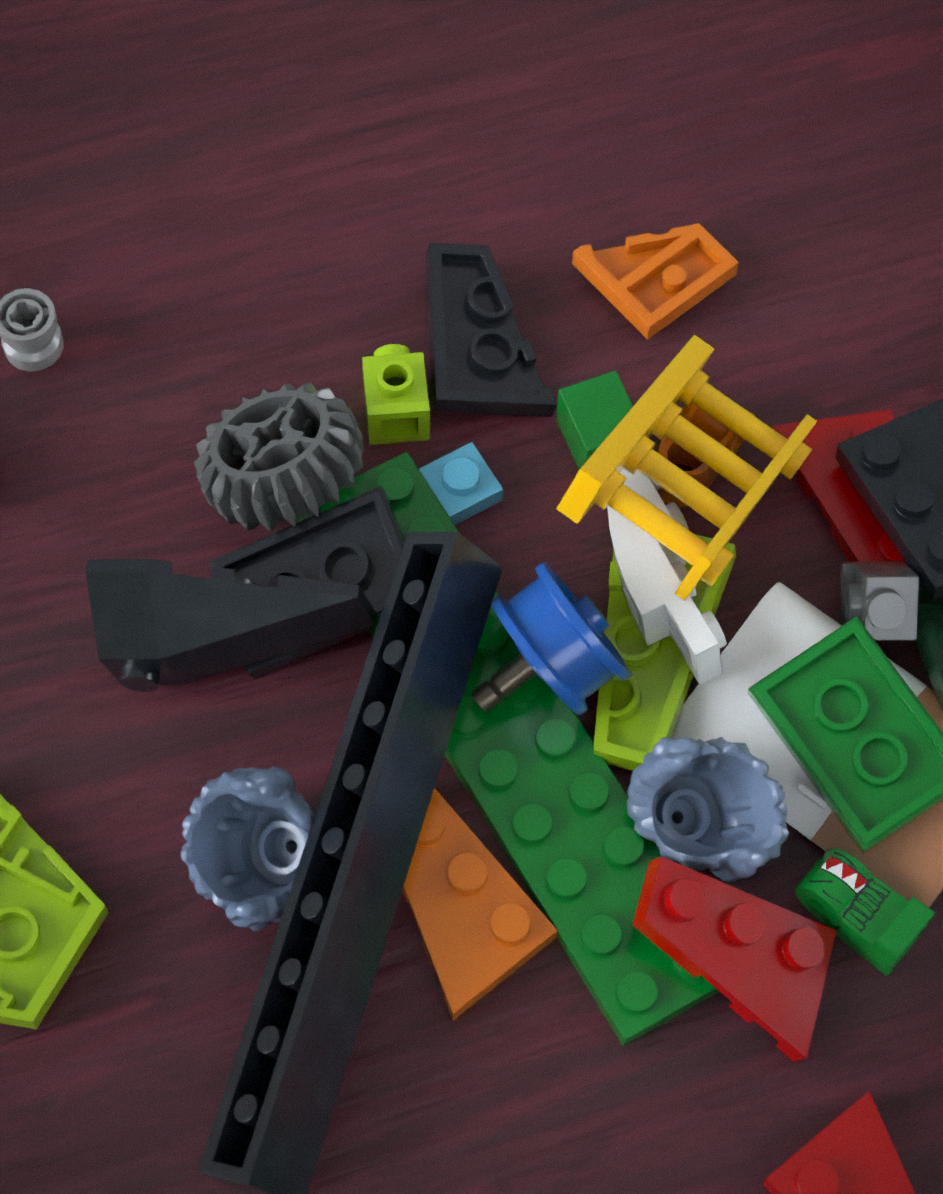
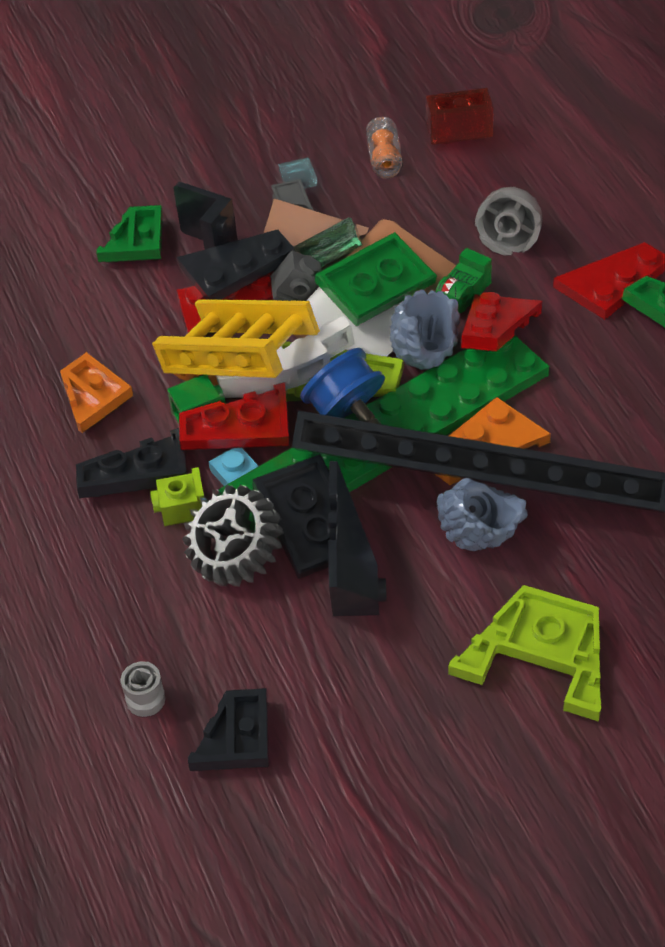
camera: 90 degrees left, 15 degrees down
(529, 476) = (240, 424): none -> red wing

